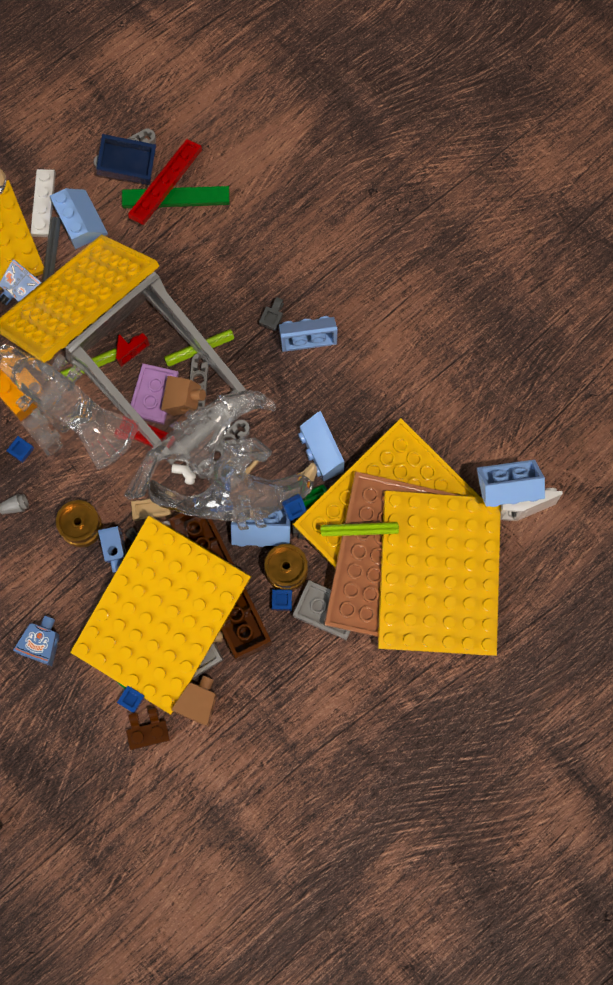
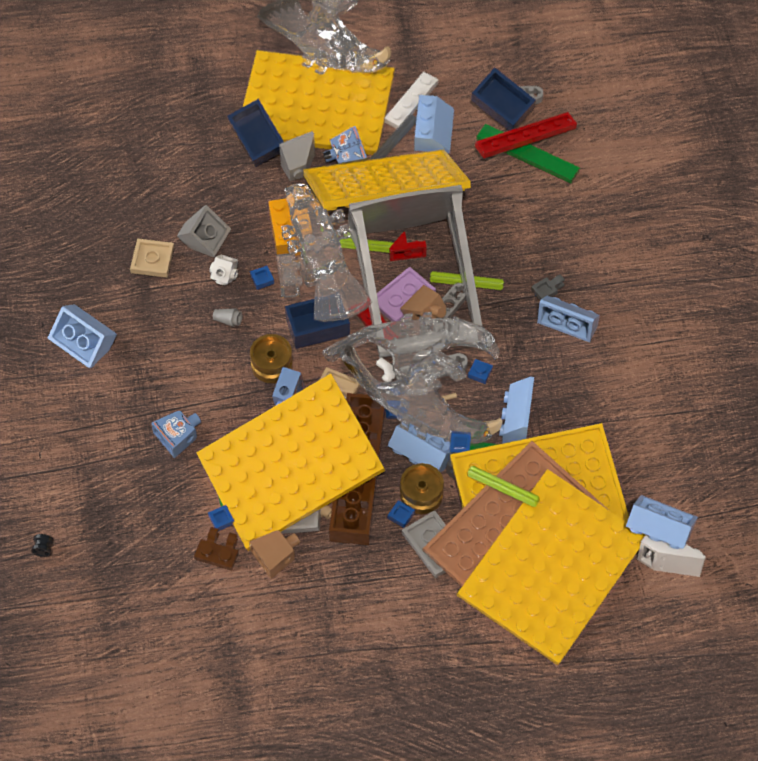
camera: 30 degrees right, 15 degrees down
(85, 475) = (307, 331): none -> dark blue piece
(264, 426) = (480, 371): none -> blue plate

